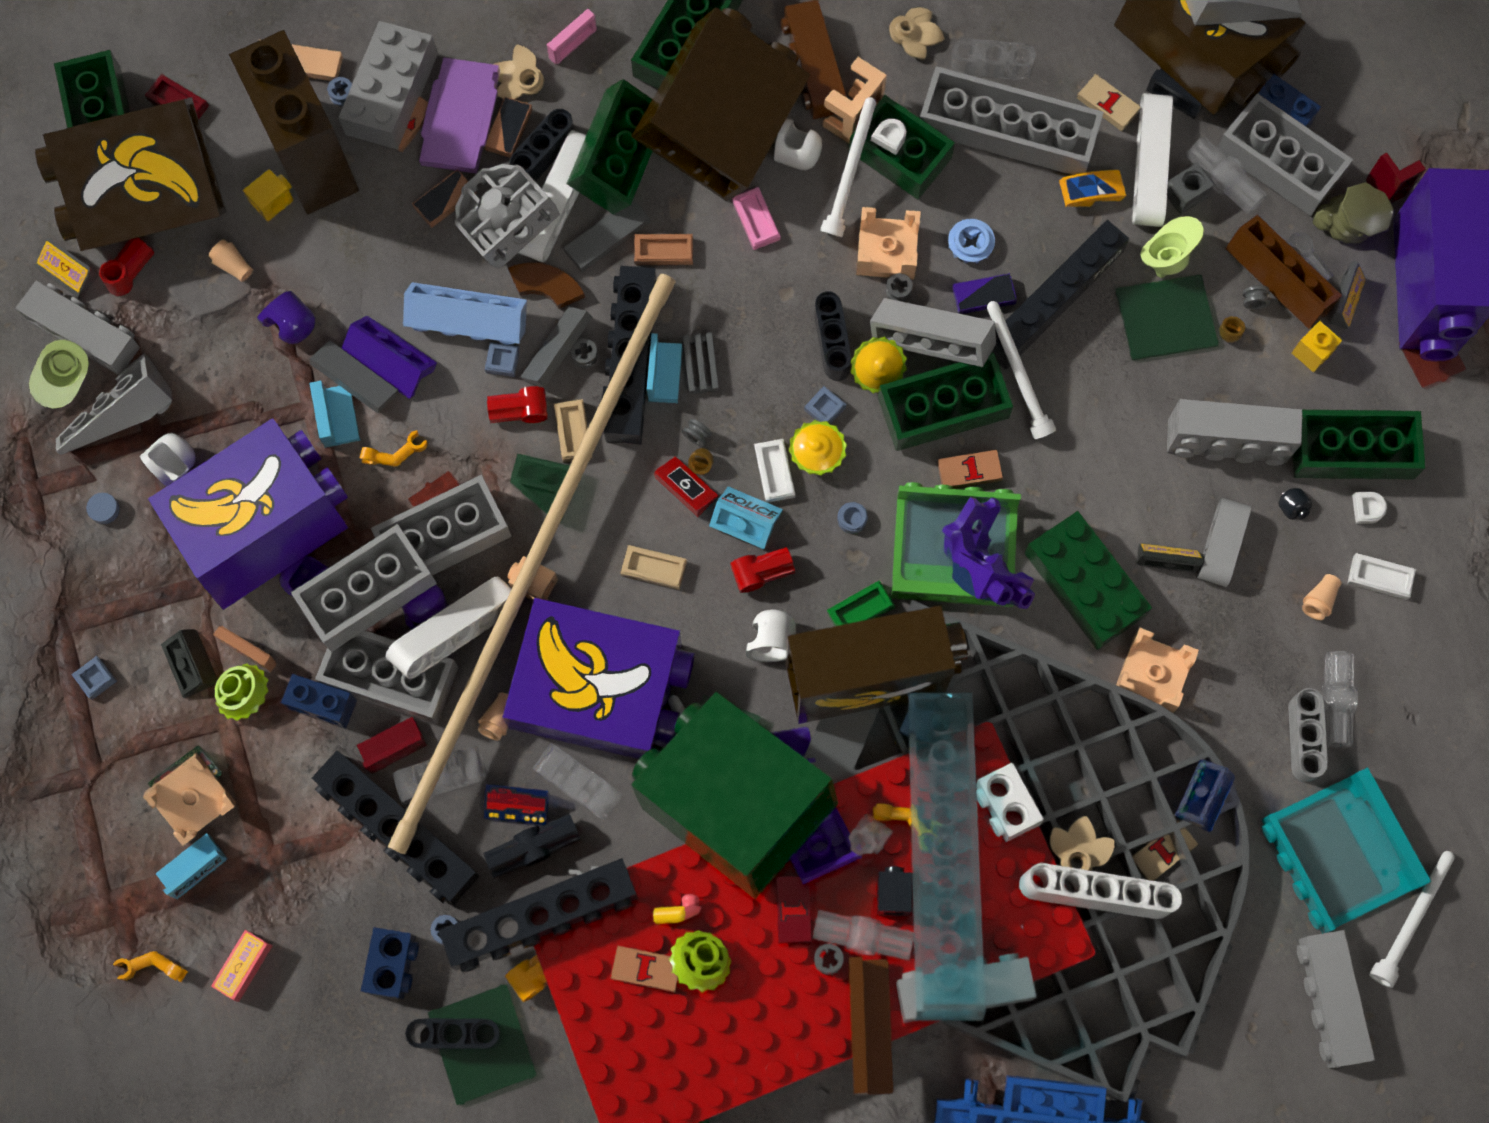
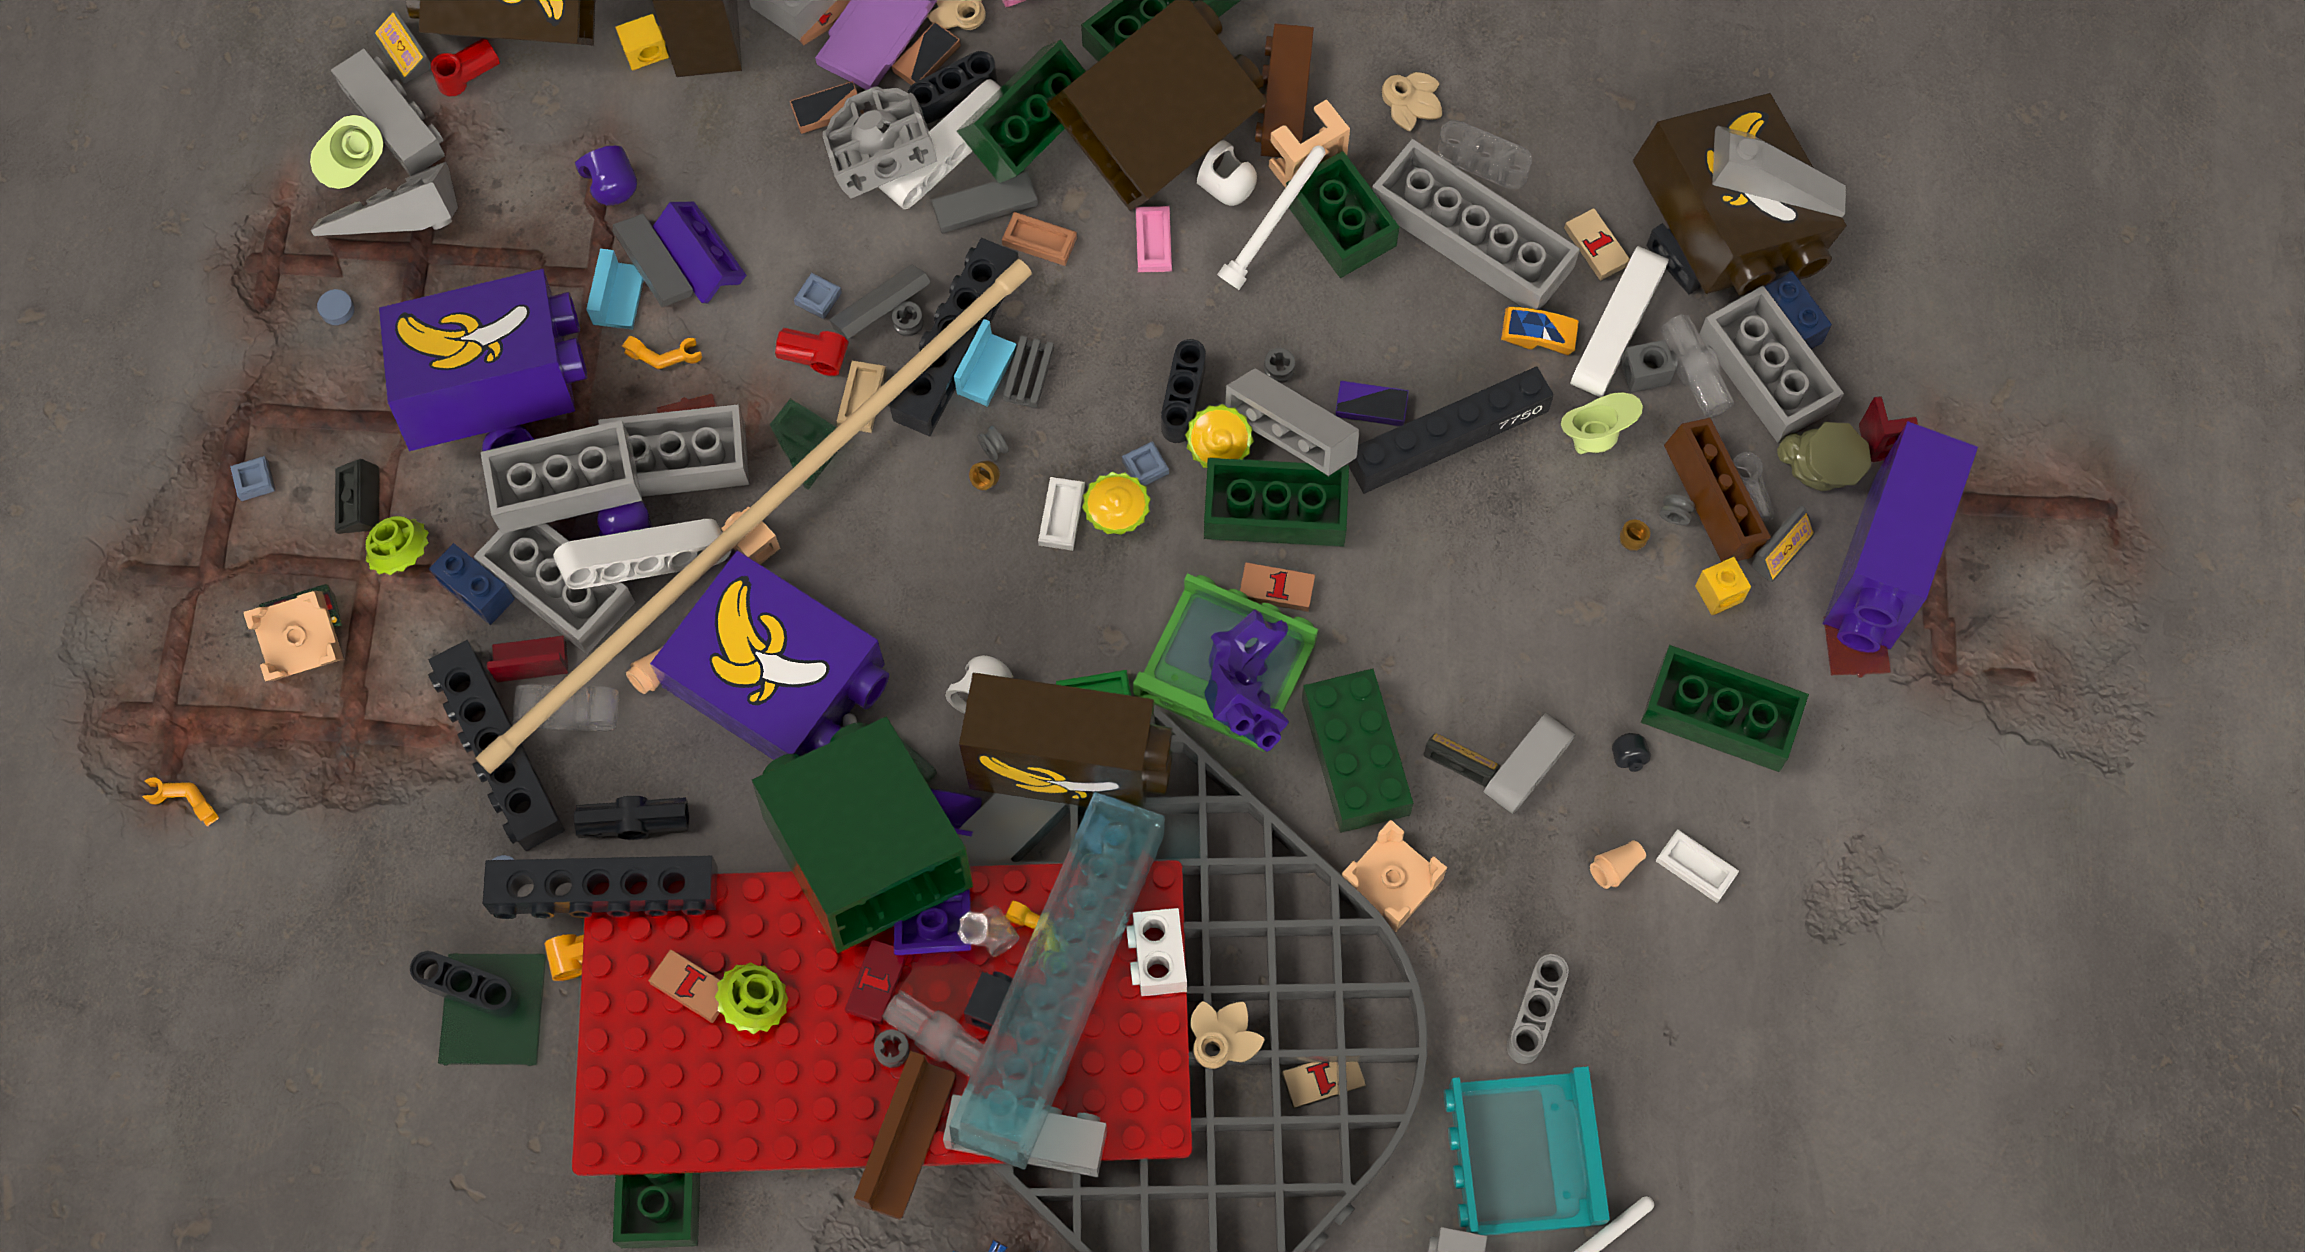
camera: 20 degrees right, 5 degrees down
(169, 458) = (422, 275): white helmet -> none
(191, 866) = (268, 710): medium azure panel -> none
(230, 260) = (573, 93): light nougat cone -> none
(241, 966) = (276, 833): slope -> none
(245, 648) = (419, 502): nougat tile -> none
(380, 962) = (420, 881): dark blue brick -> none
(464, 313) = (795, 232): light blue brick -> none
(516, 804) = (634, 768): slope -> none
(546, 281) = (898, 230): reddish brown tile -> none
(577, 781) = (708, 767): clear beam -> none
(653, 567) = (887, 570): tan tile -> none
(678, 913) = (750, 939): arm -> none
(685, 486) = (958, 496): slope -> none
(745, 517) = (1007, 551): medium azure panel -> none
(754, 571) = (992, 612): red piece -> none
(852, 517) = (1125, 593): sand blue tile -> none
(887, 244) = (1285, 314): light nougat panel -> none
(890, 135) = (1329, 195): white tile -> none
(971, 228) = (1385, 329): light blue gear -> none
(1040, 423) = (1375, 562): white piece -> none
(1113, 886) = (1240, 1086): white beam -> none
(1166, 317) = (1568, 498): clear green piece -> none
(1205, 795) = (1389, 1029): clear blue slope -> none
(1234, 431) = (1586, 644): light grey brick -> none
(1339, 698) = (1590, 982): clear piece -> none
(1368, 507) = (1713, 785): white tile -> none

